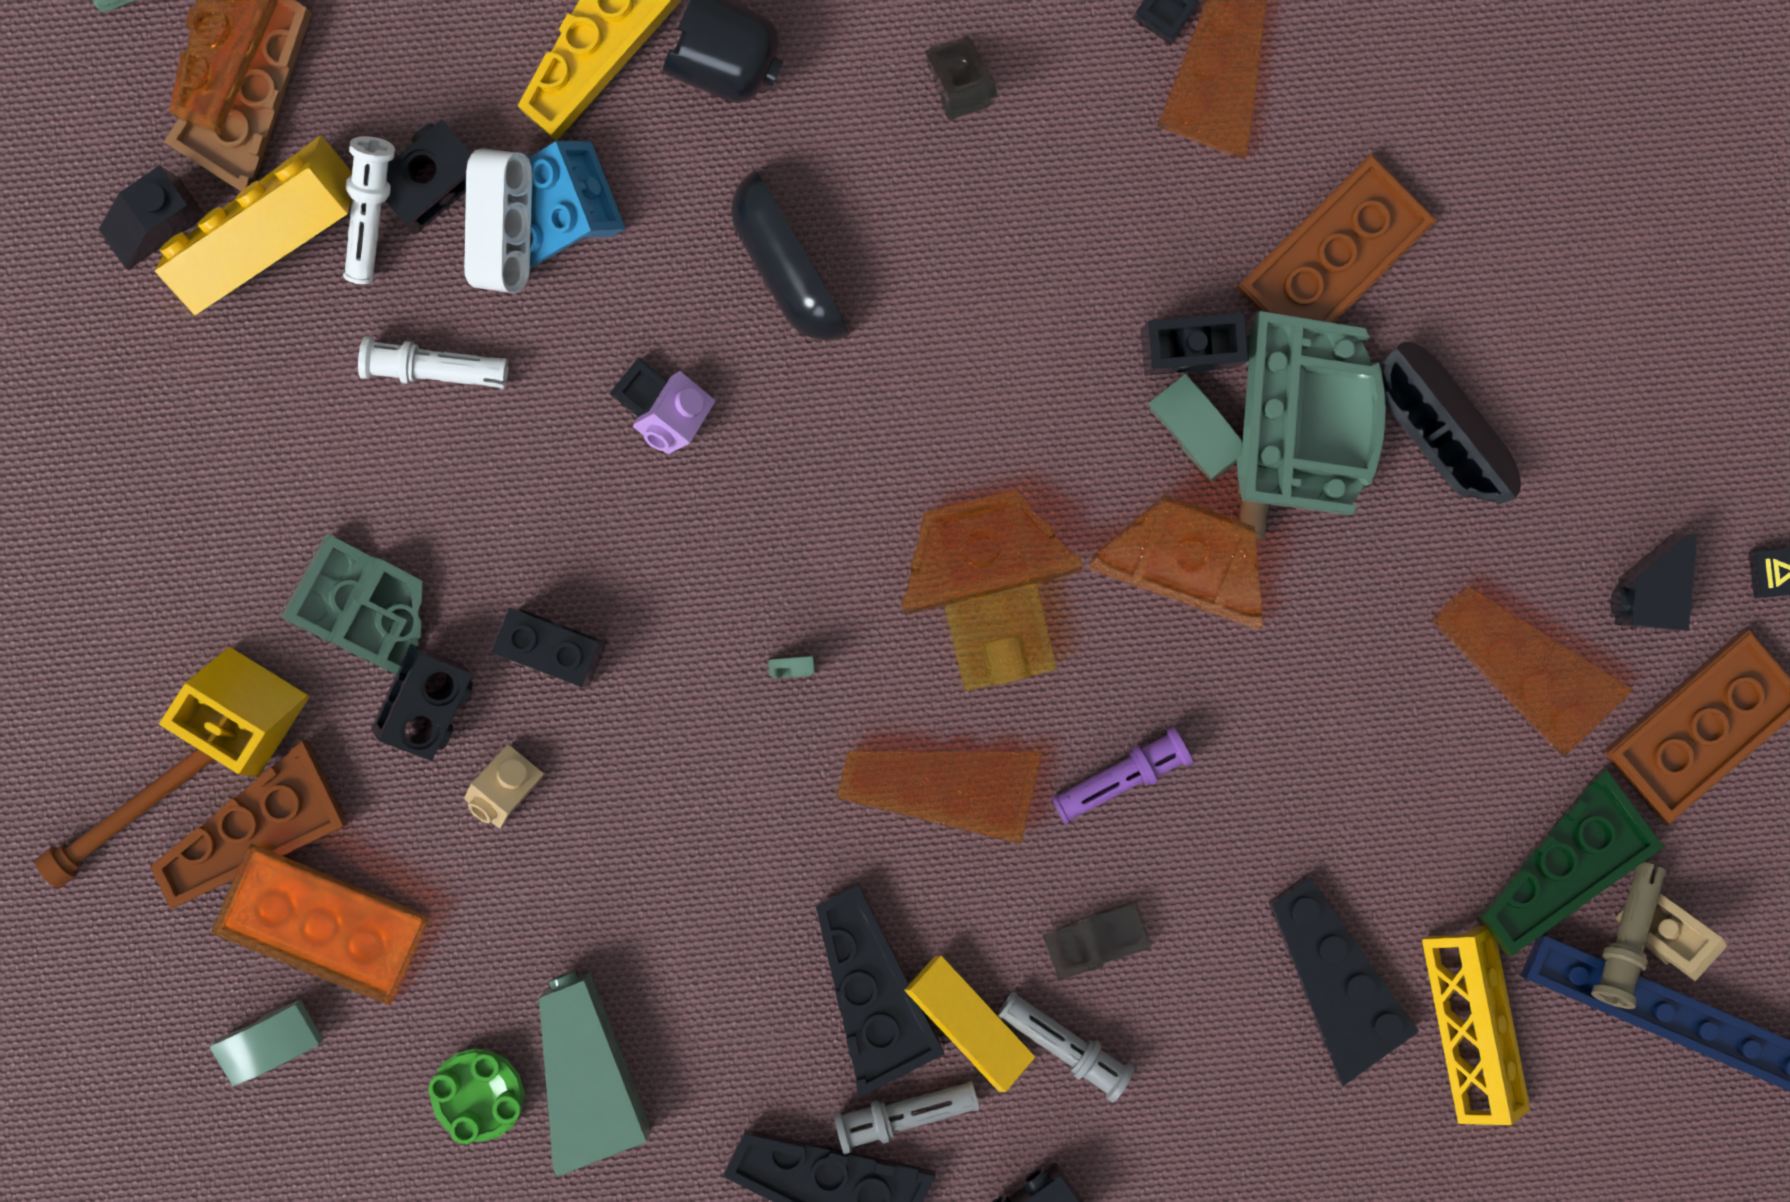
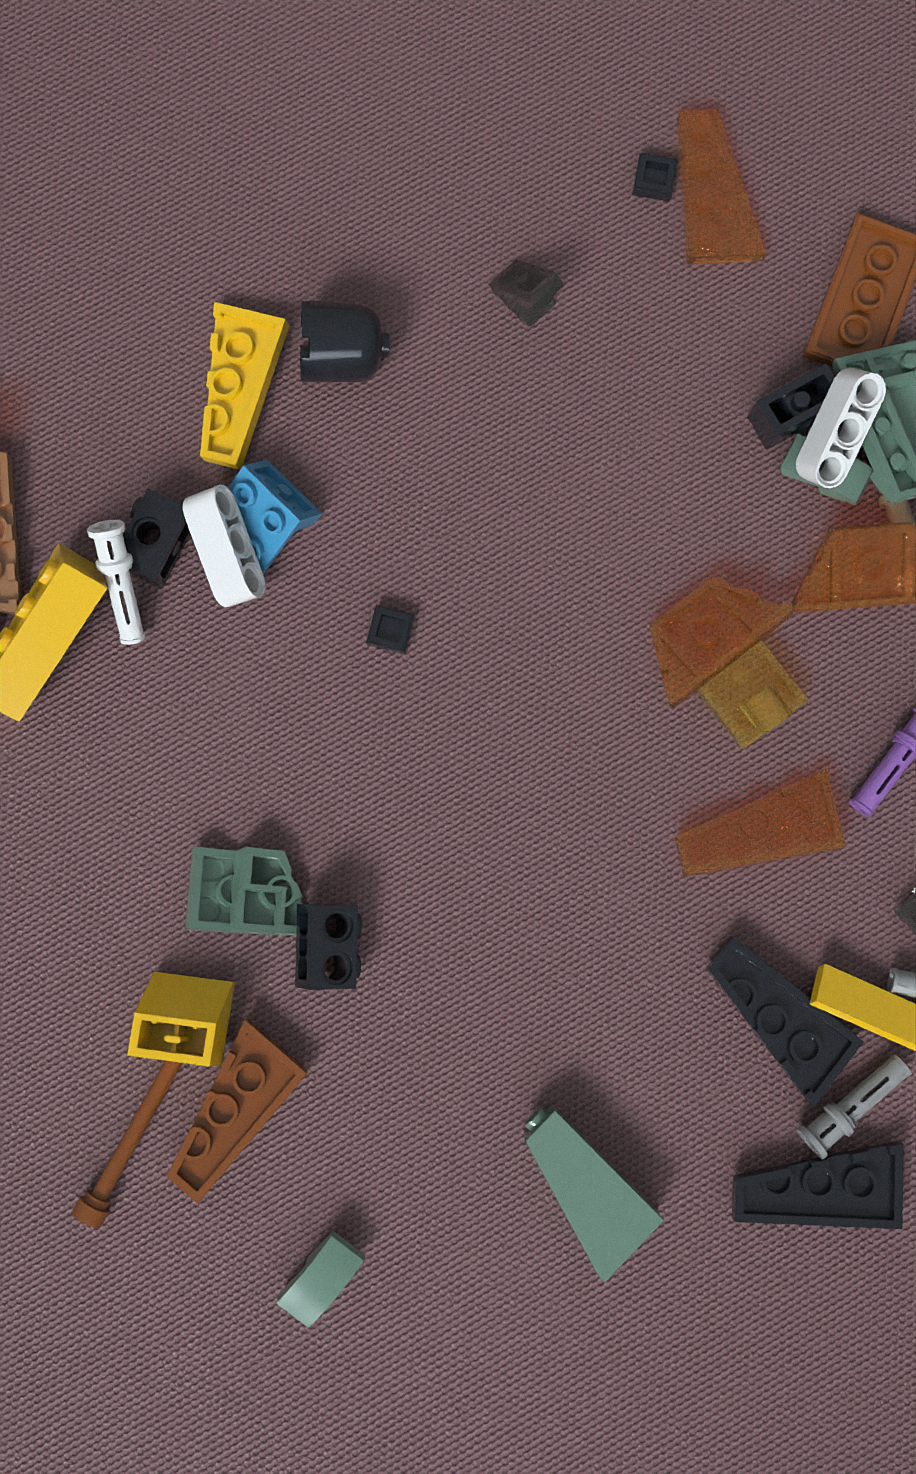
camera: 20 degrees left, 5 degrees down
(320, 924) = (322, 1162): clear orange tile -> none
(410, 362) = (201, 686): white pin -> none
(476, 1095) = (508, 1245): bright green dish -> none
(502, 786) = (418, 986): tan bracket -> none
(549, 647) = (407, 857): black brick -> none
(675, 414) = (424, 635): lavender bracket -> none
(783, 262) = (456, 483): black brick -> none
(792, 666) = (602, 789): sand green tile -> none
(1231, 370) = (857, 417): none -> white beam

